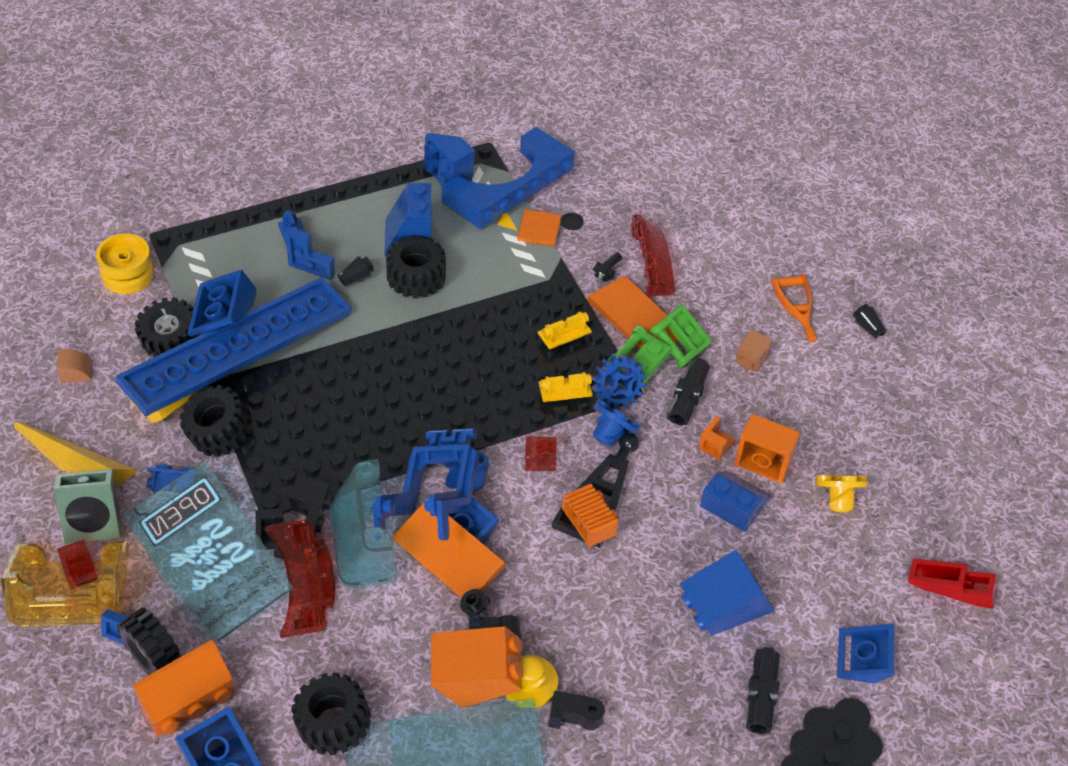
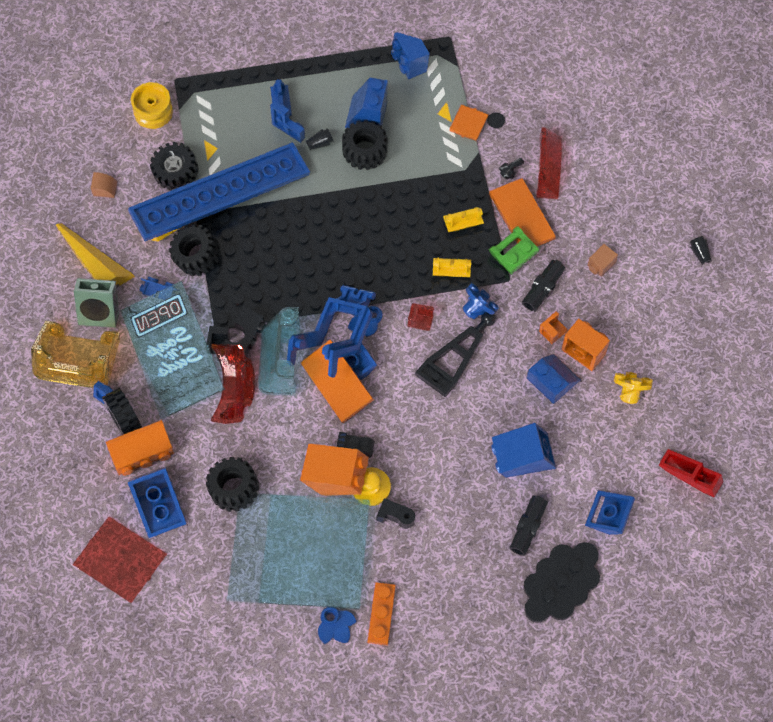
camera: 15 degrees right, 15 degrees up
(77, 564) = (84, 343): clear red panel -> none
(221, 302) = (214, 155): blue slope -> none
(474, 602) = (346, 423): black plate -> none
(486, 202) = (431, 95): blue arch -> none
(590, 514) = (441, 373): orange brick -> none
(629, 385) = (490, 269): blue gear -> none
(686, 331) = (554, 235): bright green plate -> none
(796, 310) = (650, 229): orange piece -> none

